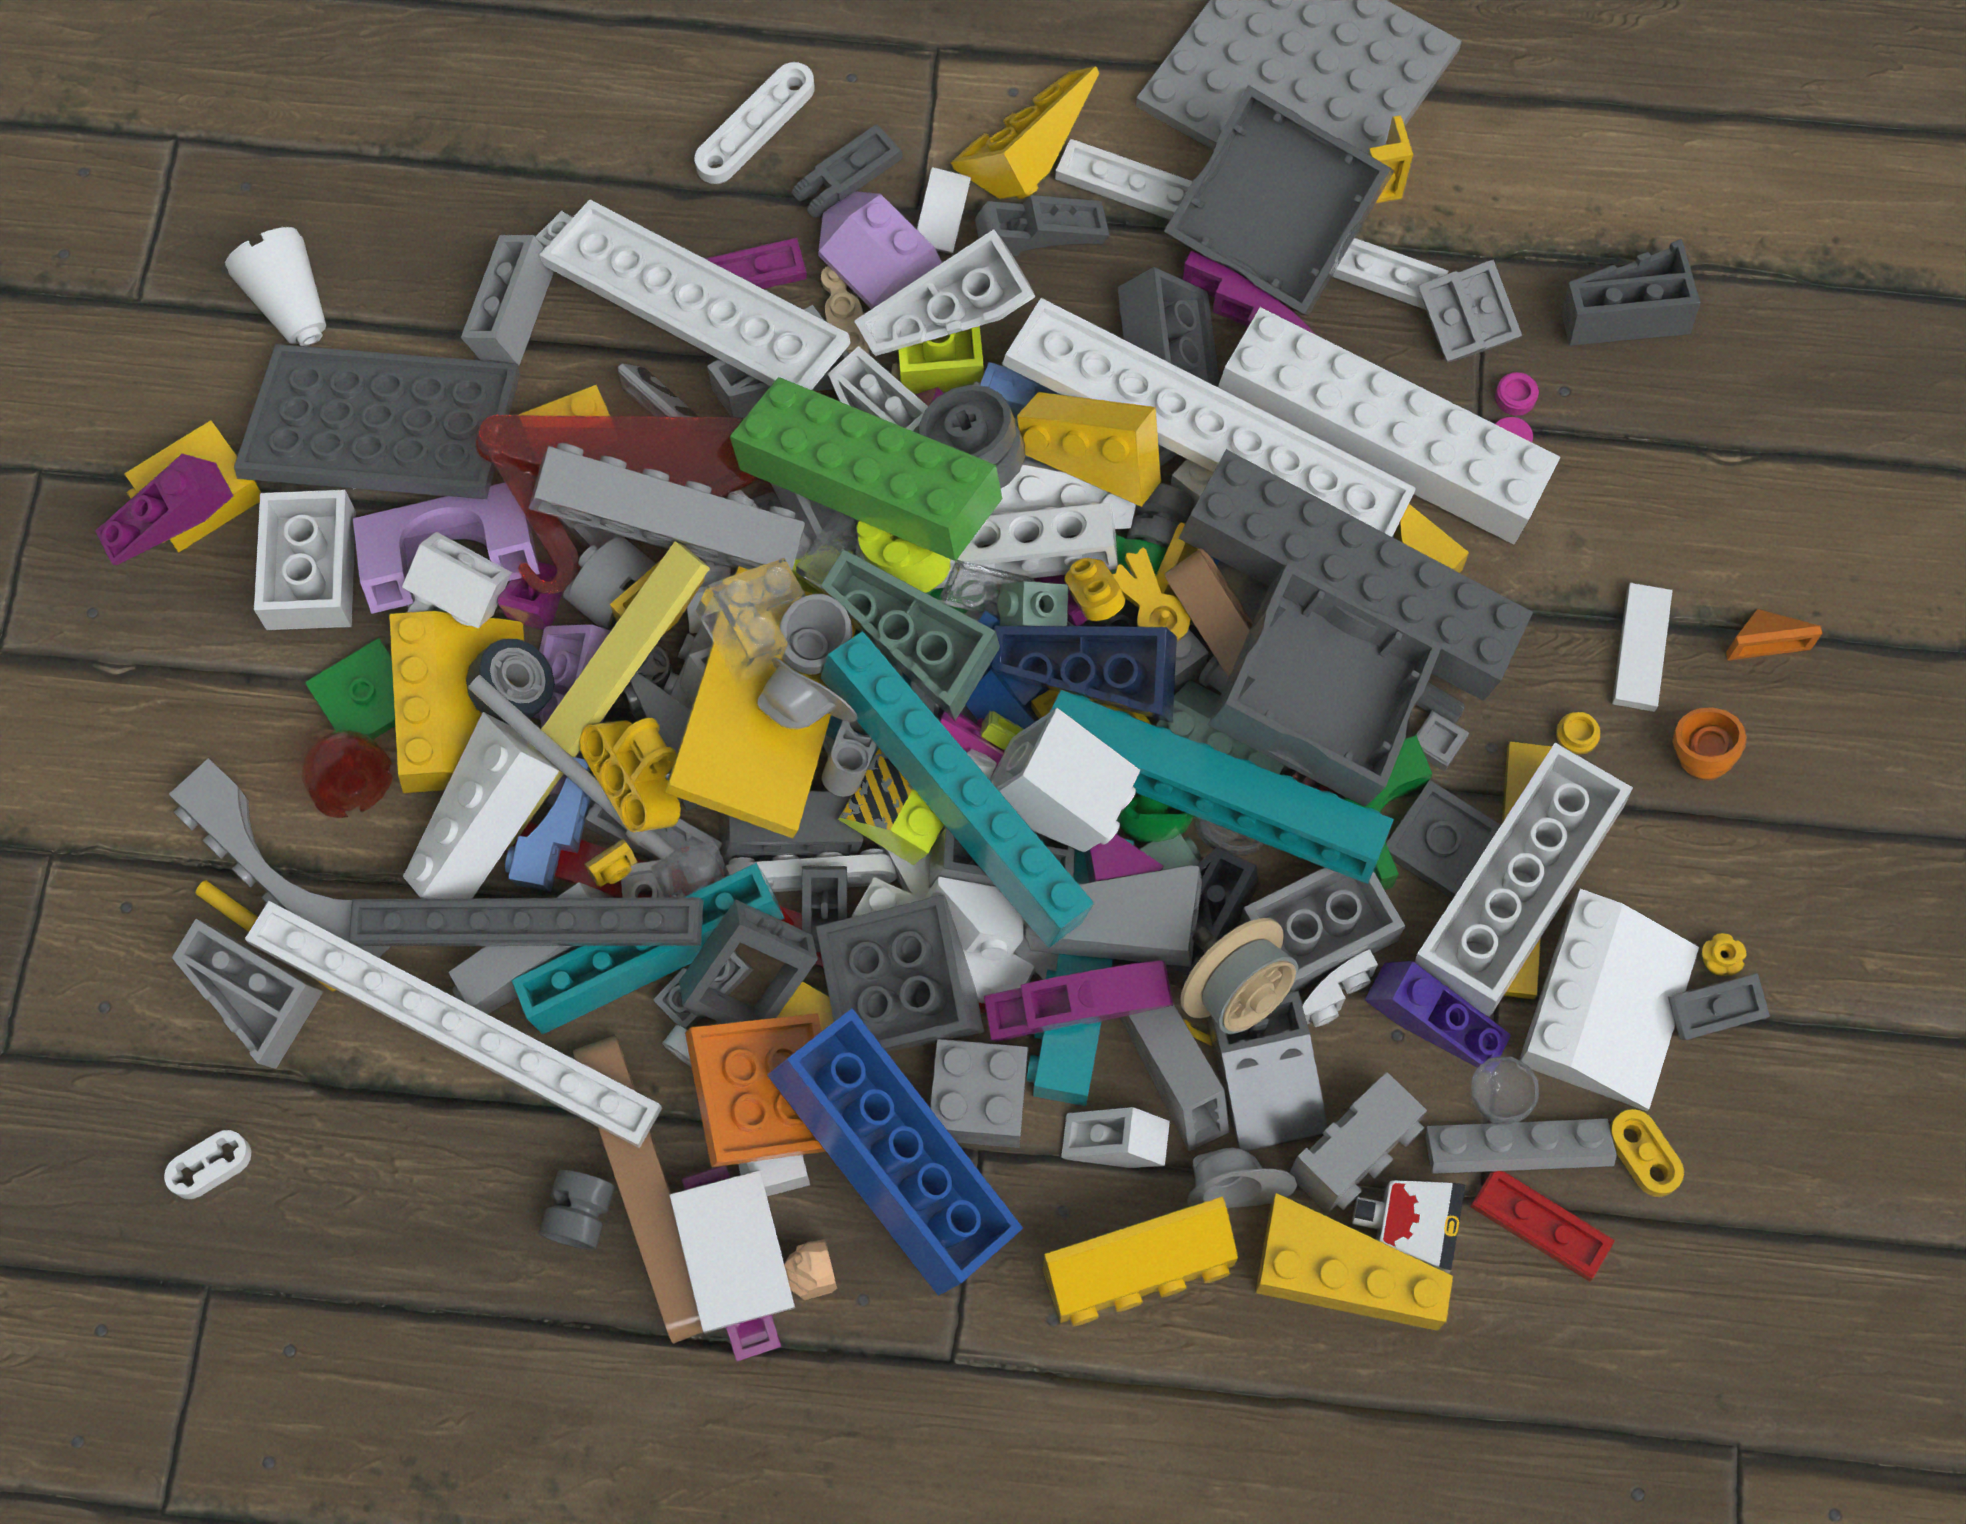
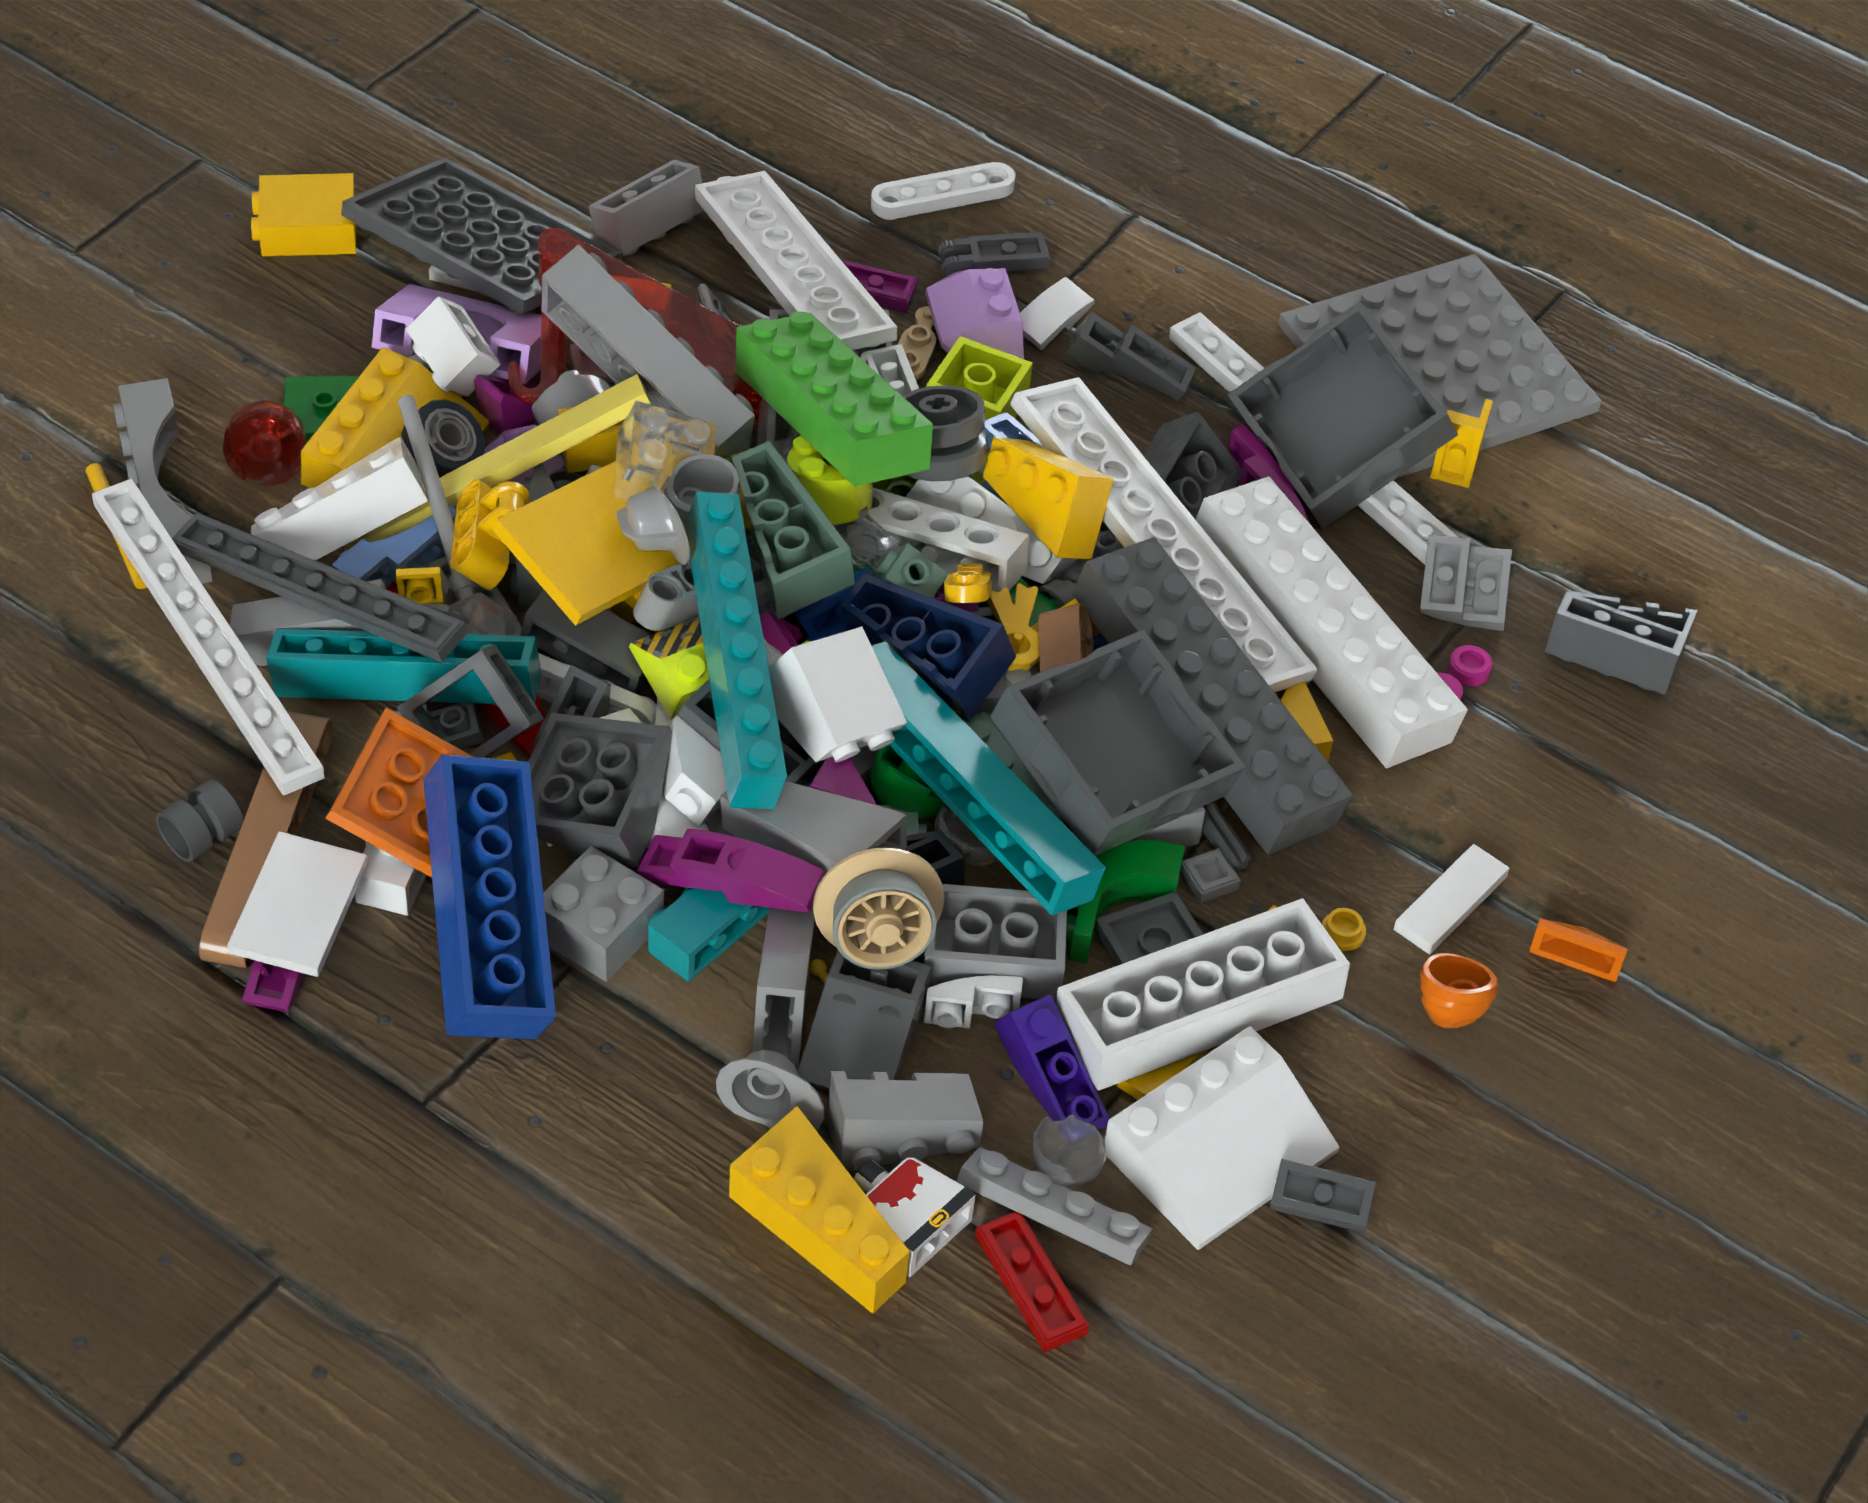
camera: 25 degrees right, 20 degrees down
(167, 506) = (276, 202): magenta slope -> none
(248, 990) = (68, 544): light grey wedge -> none
(280, 283) = (480, 114): white cone -> none
(305, 560) = (340, 292): white brick -> none
(810, 1270) = (356, 963): light nougat rock -> none
(957, 295) = (1013, 344): white wedge -> none
(1026, 149) = (1161, 299): yellow wedge -> none
(1116, 1138) = (695, 1008): white slope -> none
(1141, 1261) = (640, 1096): yellow slope -> none
(1648, 1152) = (1169, 1276): yellow plate -> none
(1716, 963) = (1349, 1152): yellow plate -> none

